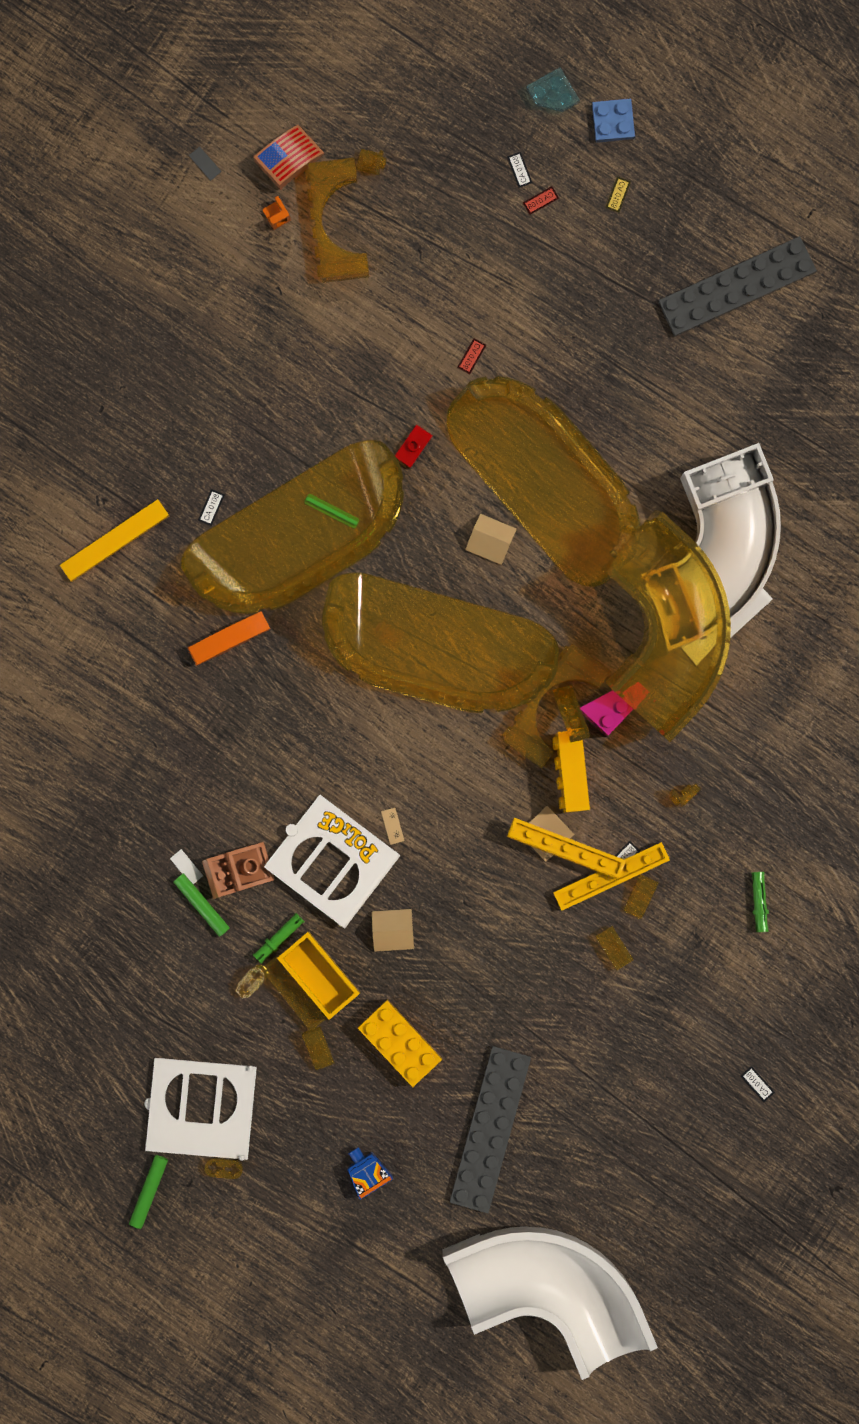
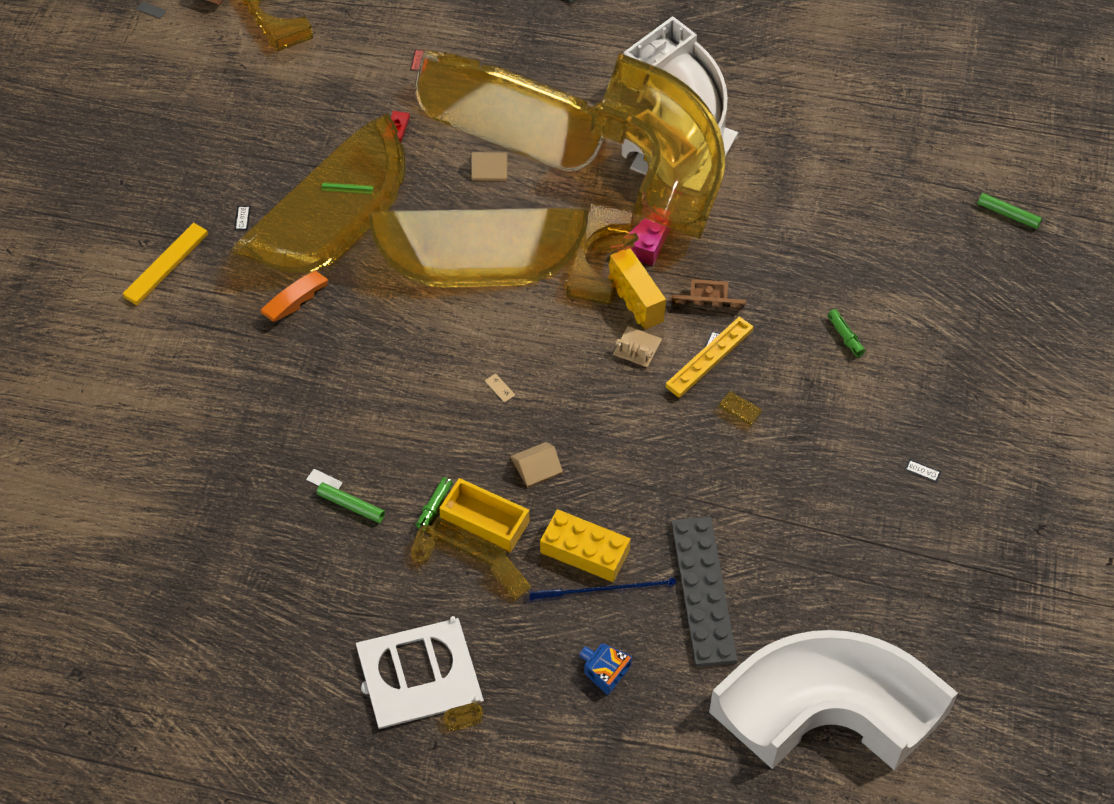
camera: 20 degrees left, 30 degrees down
(148, 1191) = (396, 764): bright green piece -> none
(237, 870) = (373, 463): nougat slope -> none
(277, 214) = (223, 19): orange panel -> none
(358, 1078) = (560, 592): none -> clear blue piece
(363, 848) = (435, 401): white door -> none
(566, 848) = (660, 342): yellow tile -> none
(640, 896) = (743, 362): clear yellow slope -> none
(643, 801) = (709, 292): none -> medium nougat bracket
(688, 793) = (739, 281): clear yellow bracket -> none

